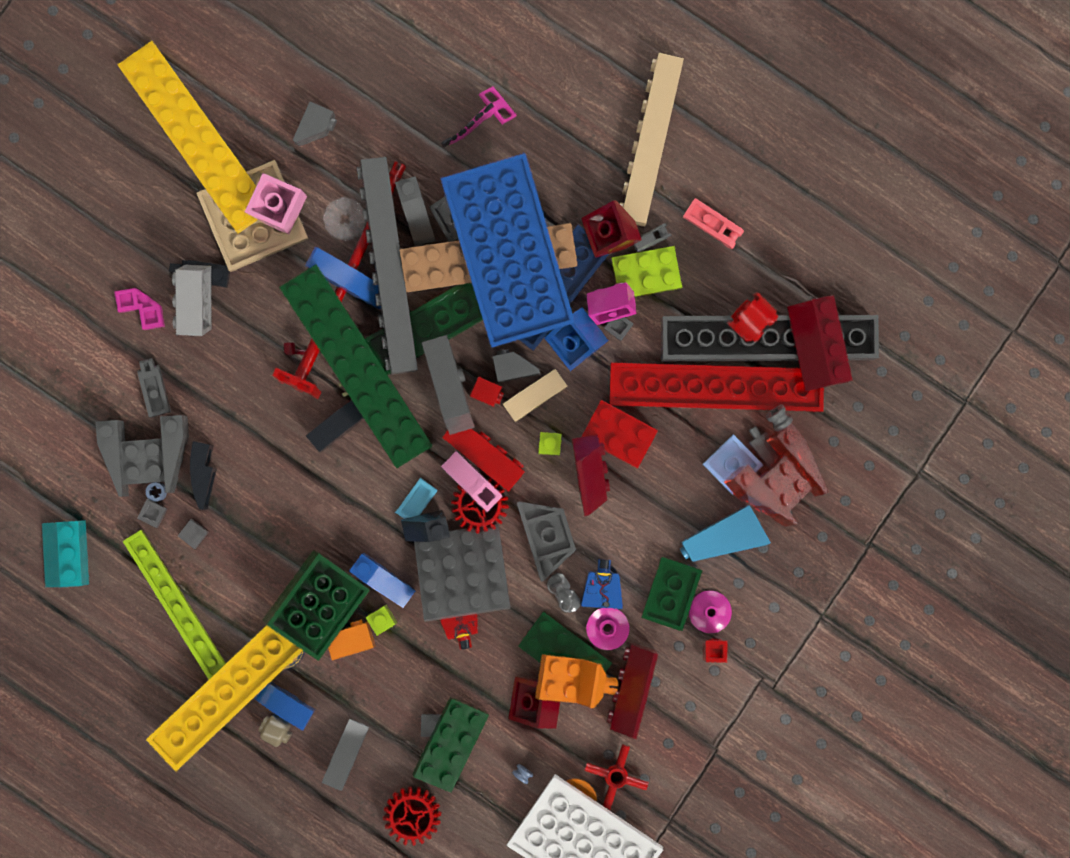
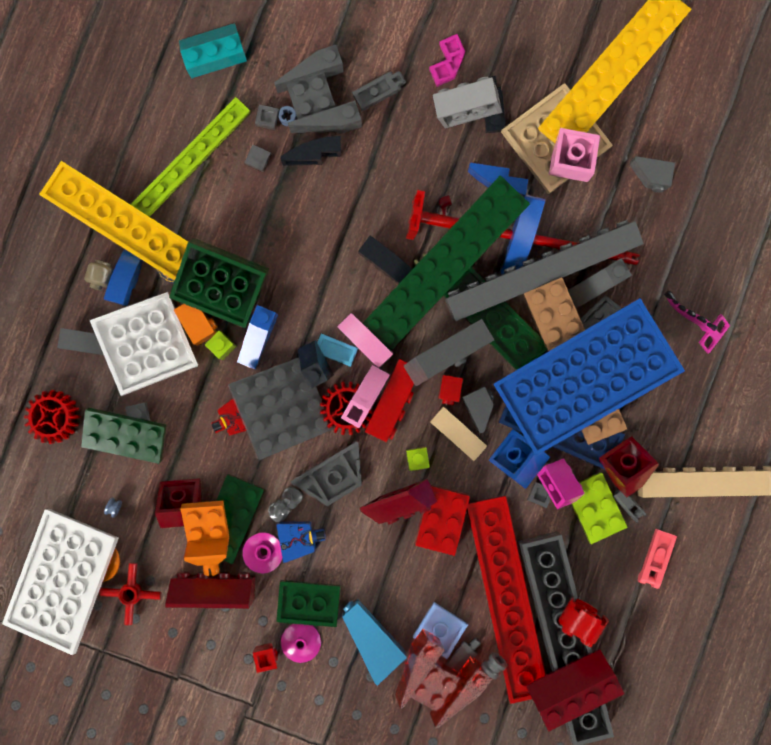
camera: 75 degrees right, 0 degrees up
(273, 295) = (488, 174): none -> blue slope
(343, 207) = (574, 210): clear plate -> none
(359, 699) = (143, 343): none -> white plate
(414, 468) = (365, 341): none -> bright pink slope

